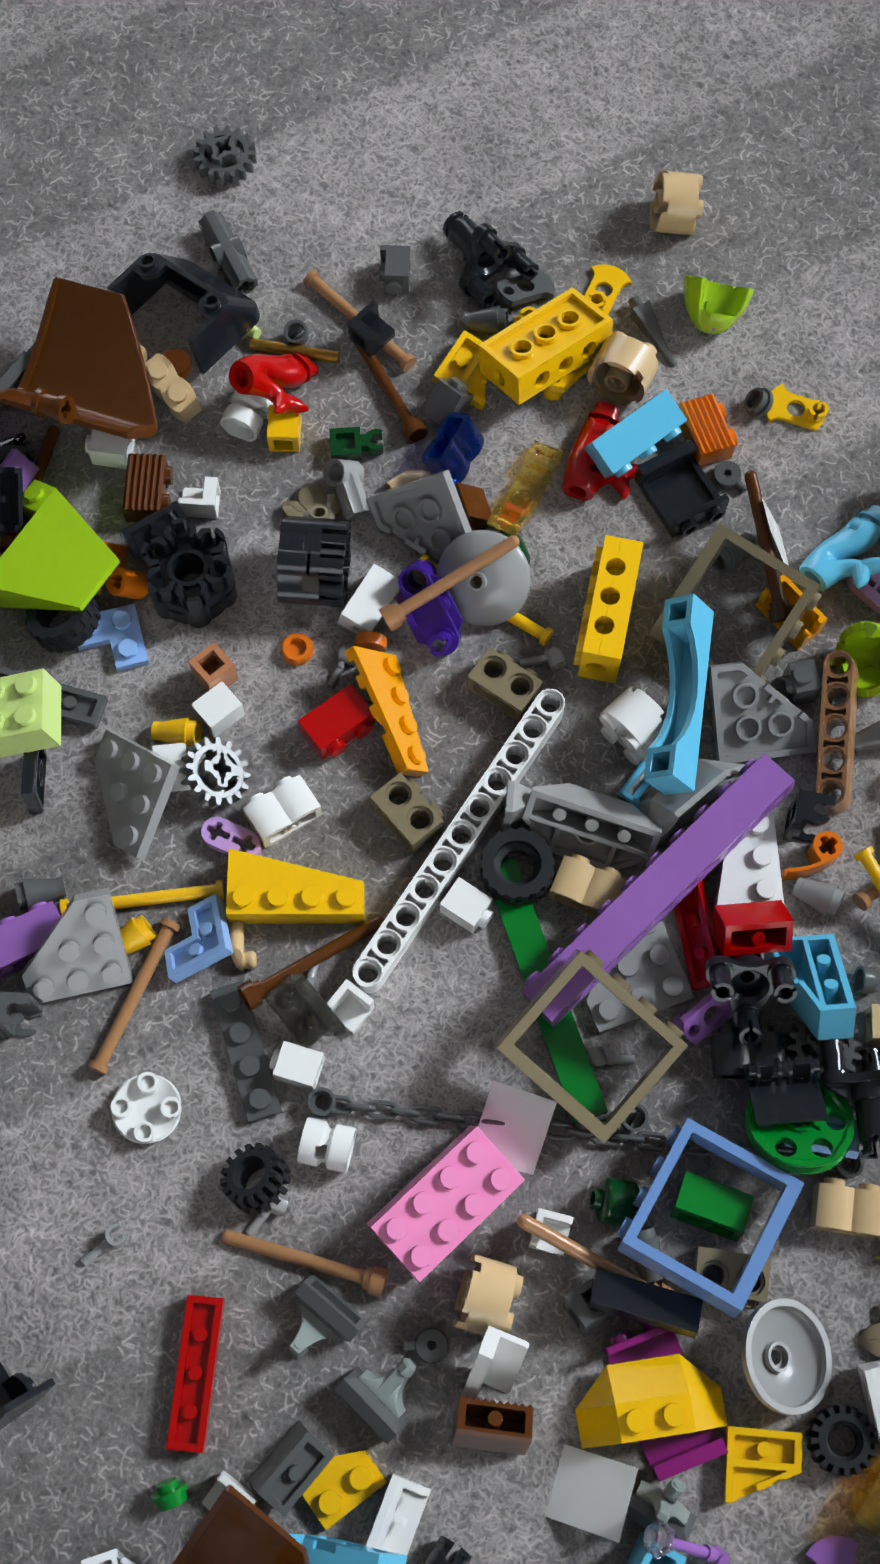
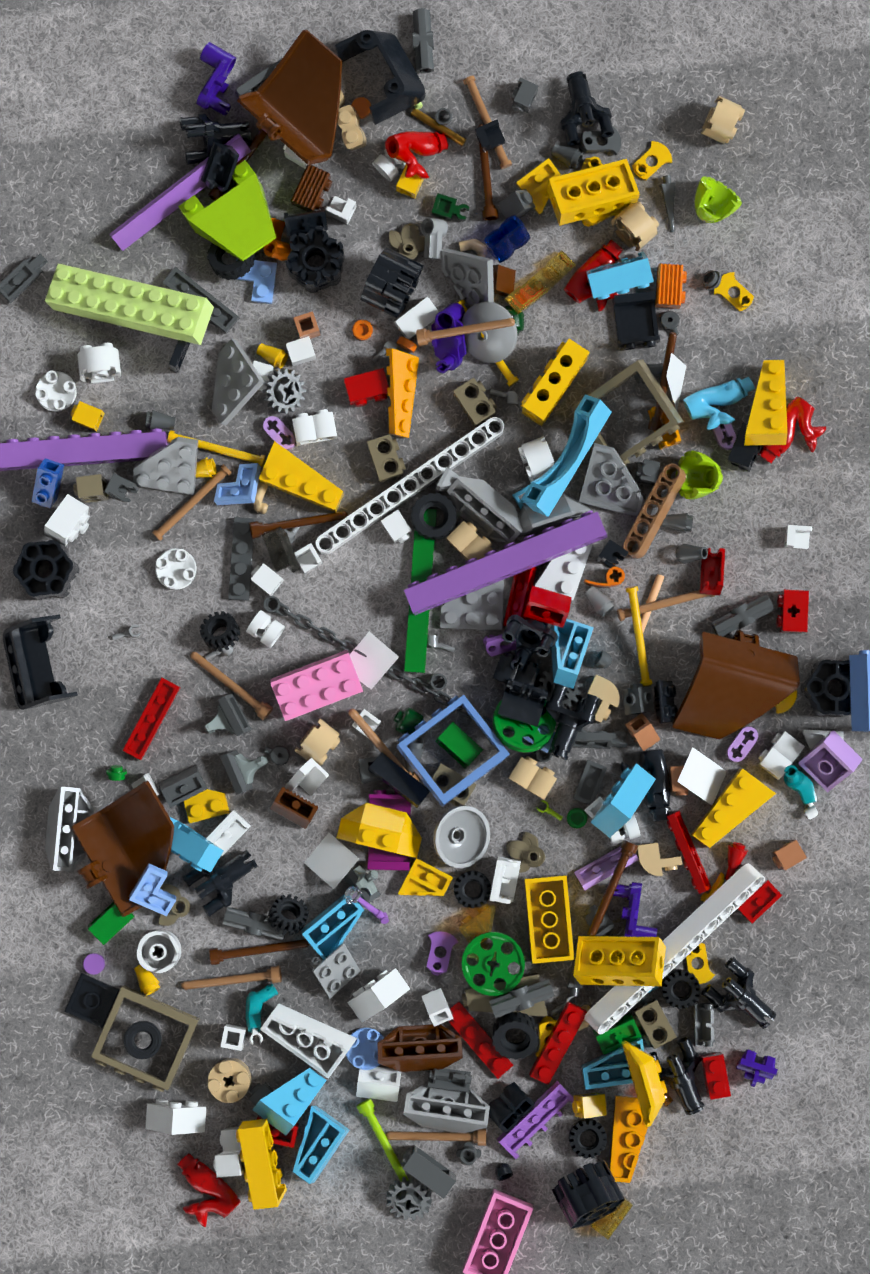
camera: 25 degrees right, 15 degrees up
(640, 1007) = (399, 652): dark tan window -> none

